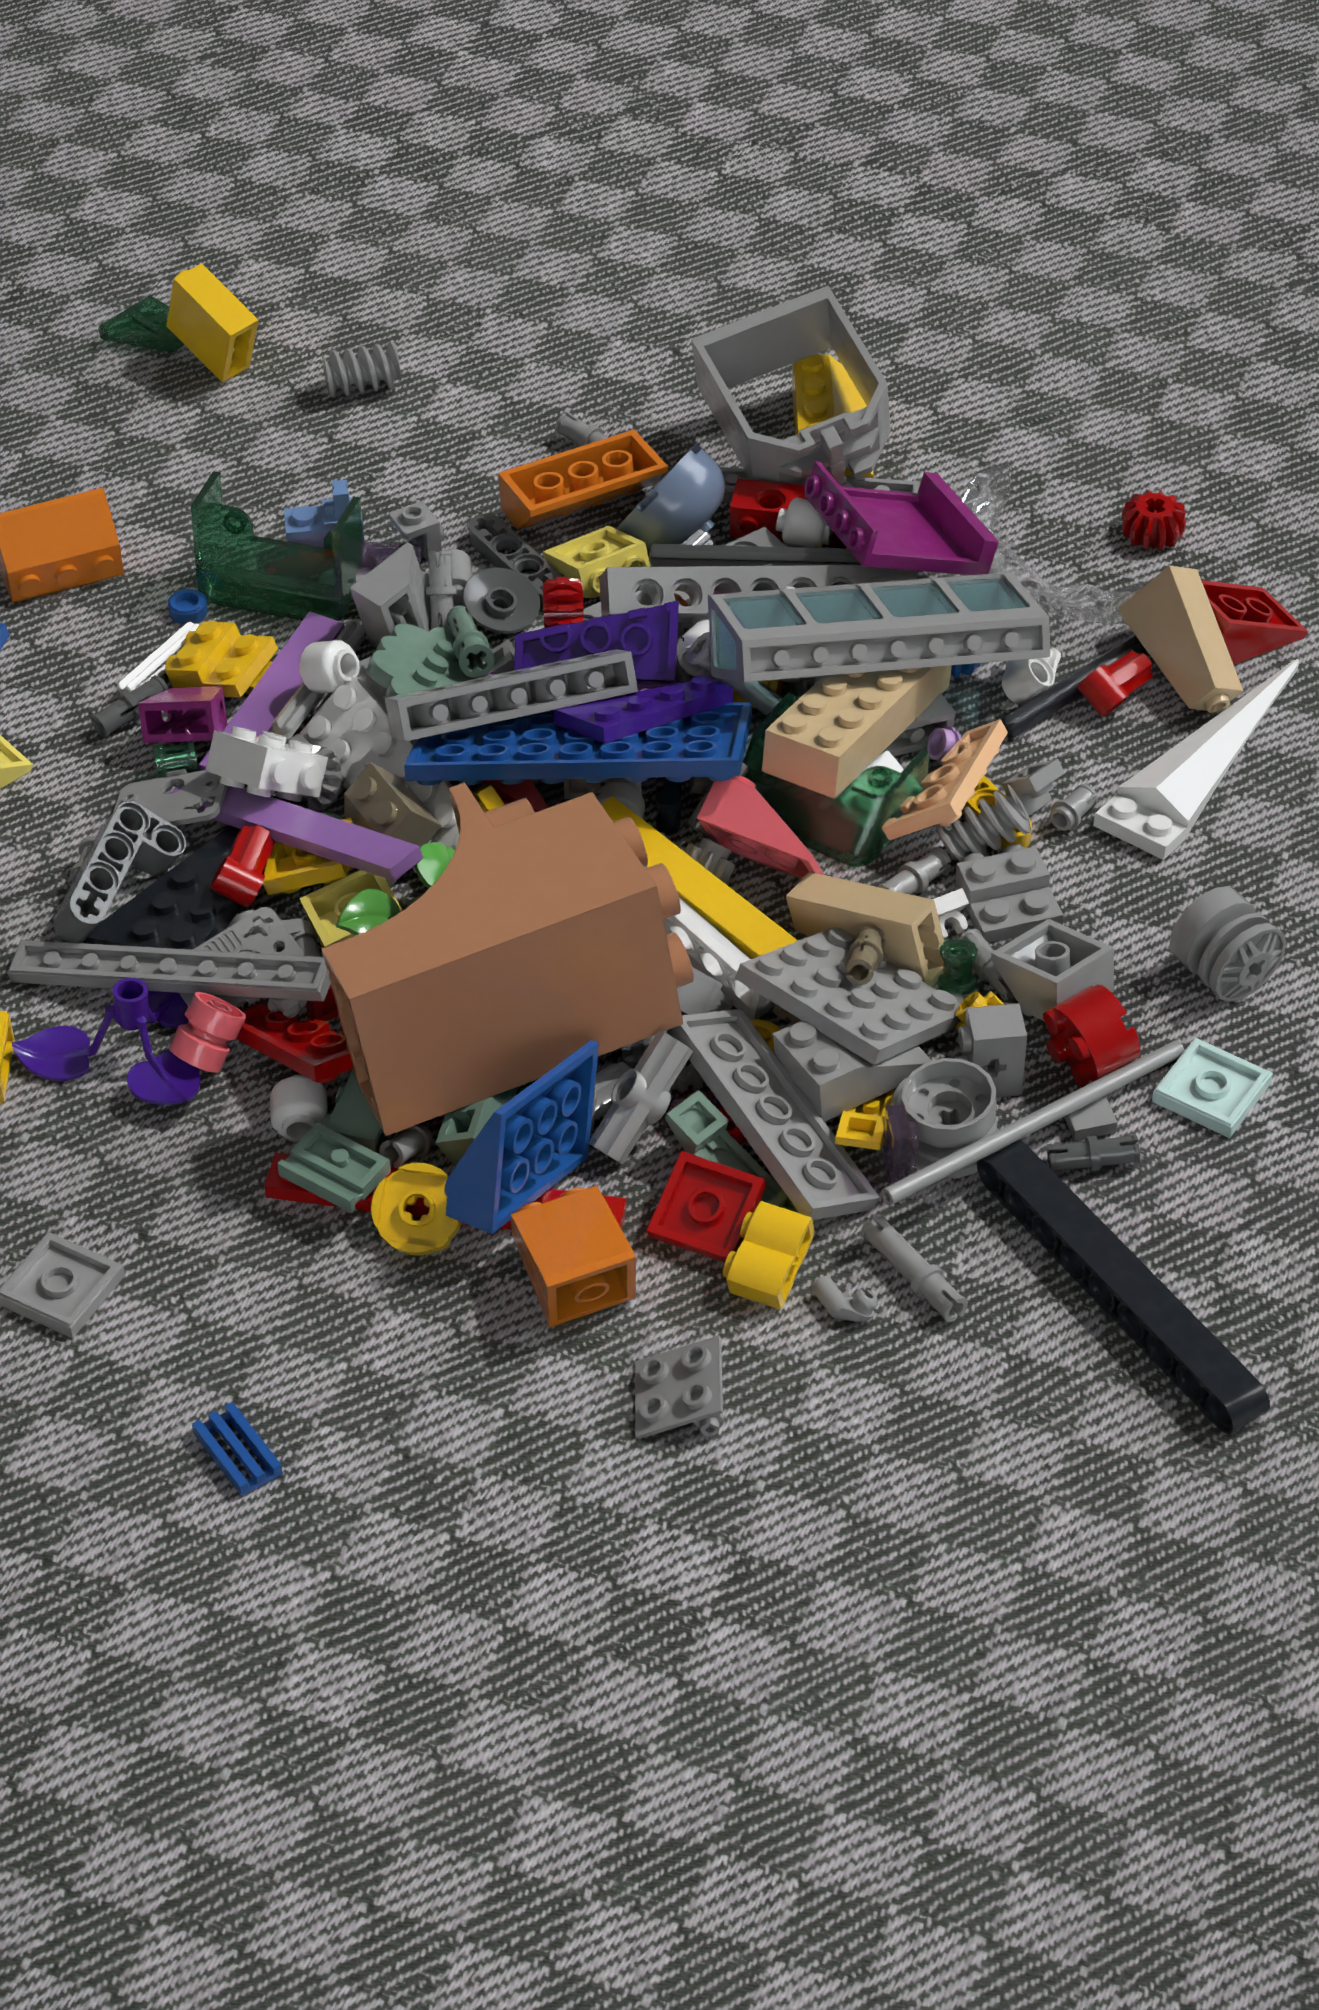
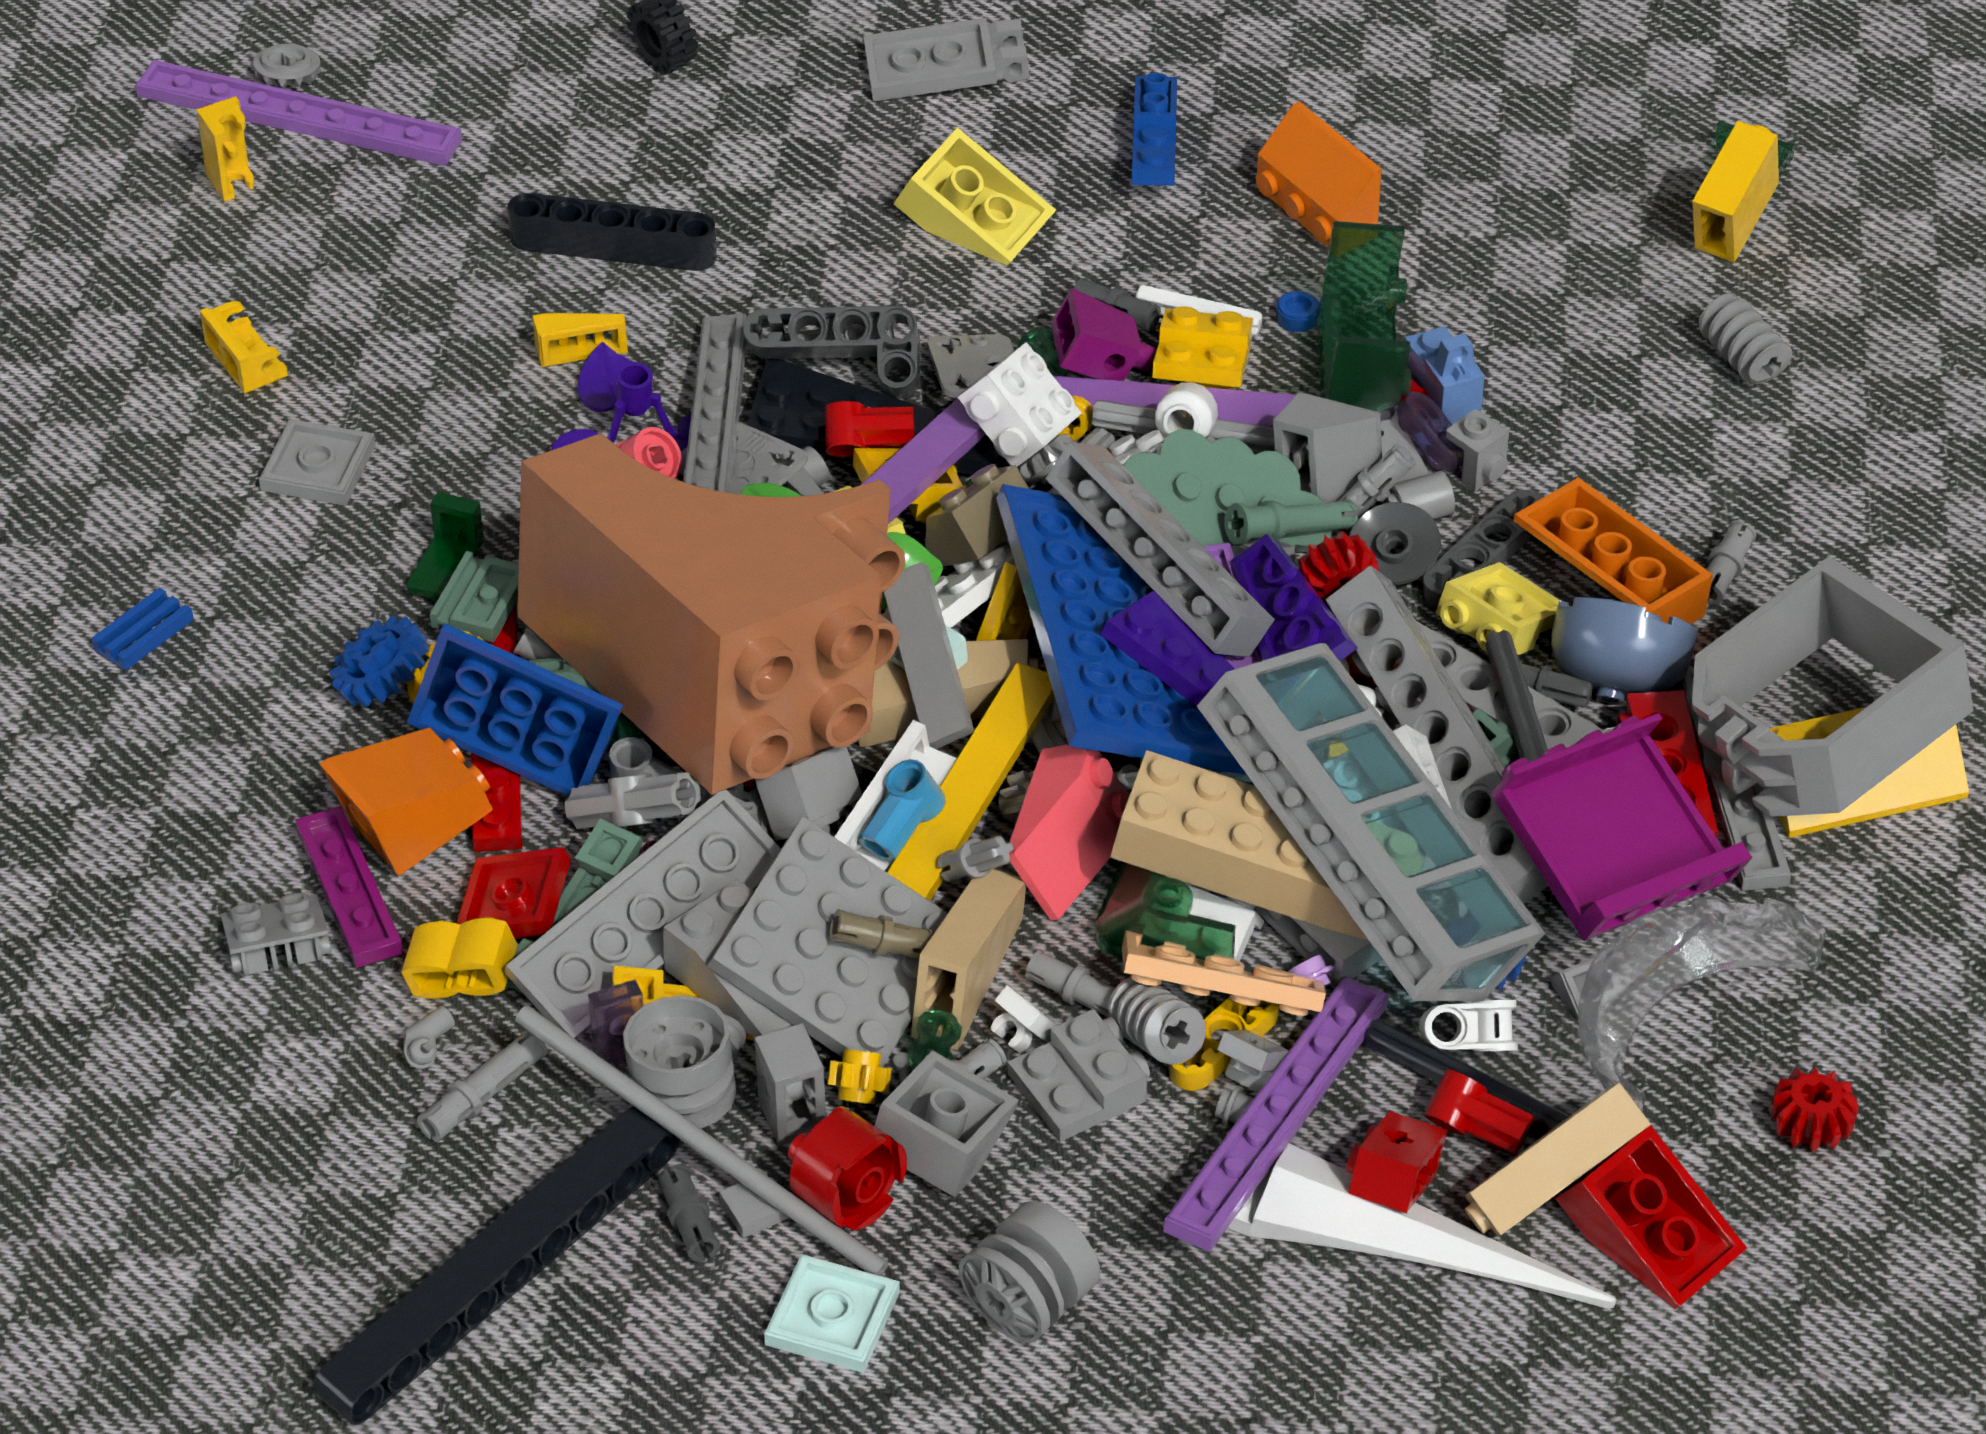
camera: 75 degrees right, 0 degrees up
(239, 1199) = (456, 530): none -> dark green bracket
(359, 1251) = (379, 661): none -> blue gear
(643, 1328) = (349, 887): none -> magenta plate
(723, 921) = (910, 801): none -> dark azure piece
(794, 886) = (975, 858): none -> light grey axle
(1110, 788) = (1275, 1115): none -> medium lavender tile
(1162, 726) = (1396, 1161): none -> red brick

